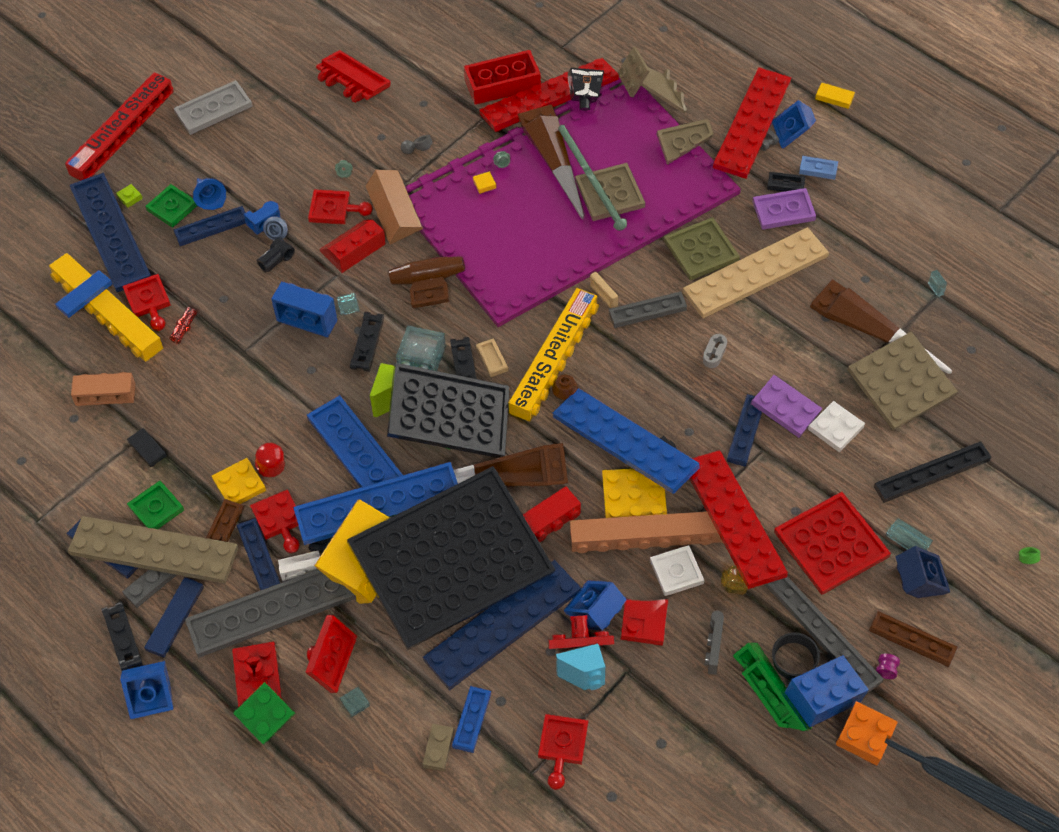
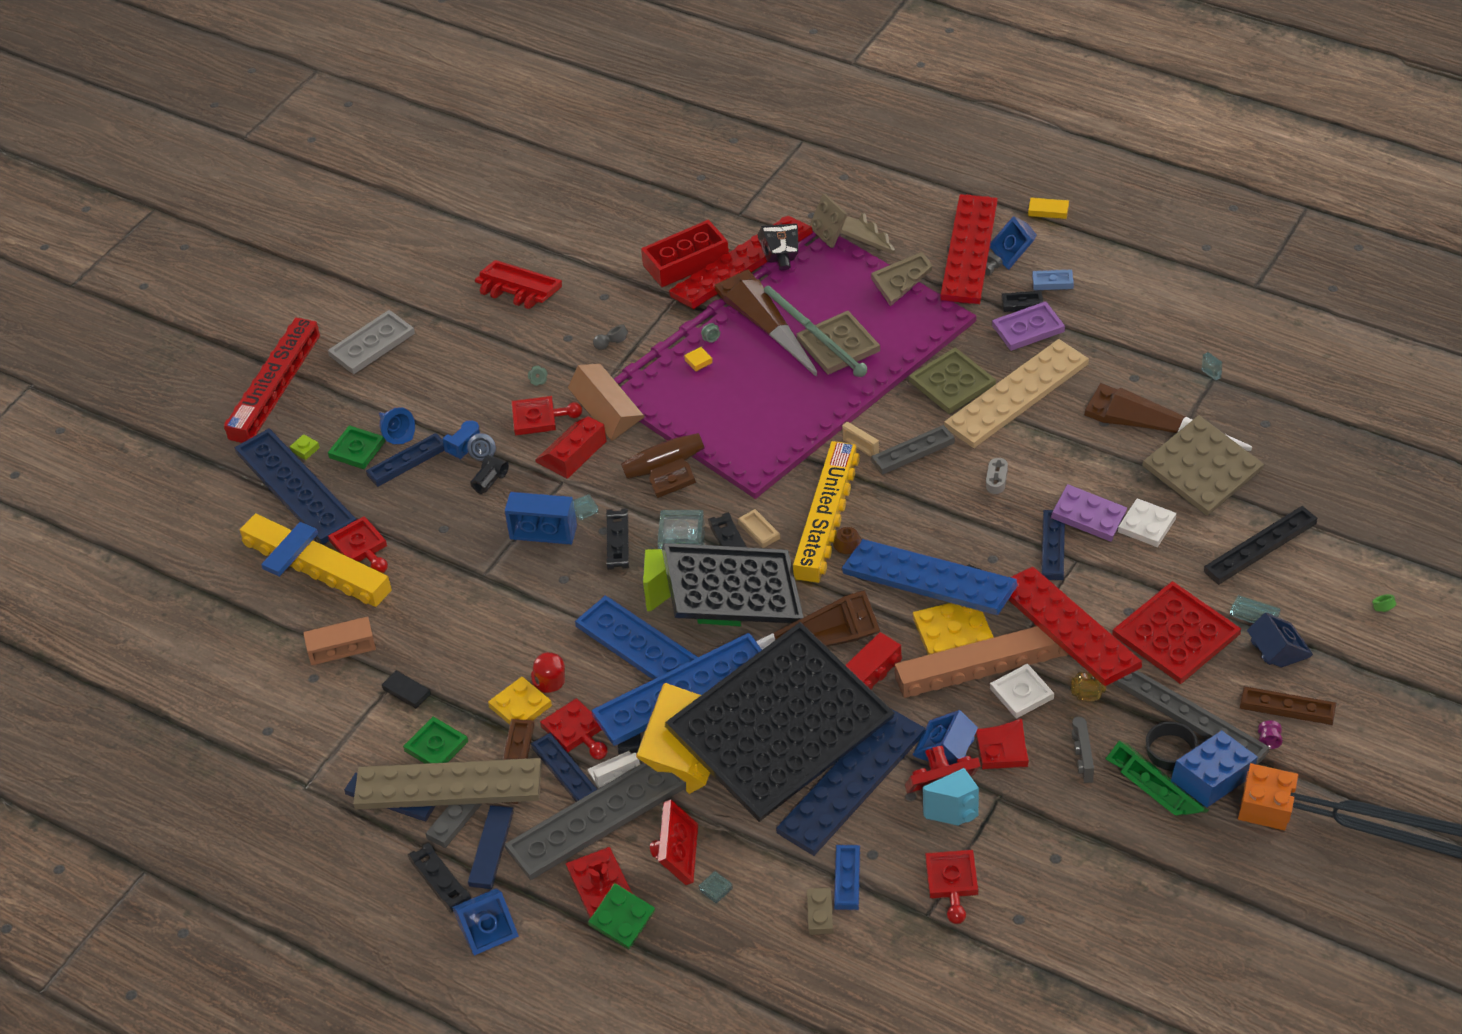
camera: 10 degrees left, 10 degrees down
(183, 325) = (407, 562): clear red pin -> none

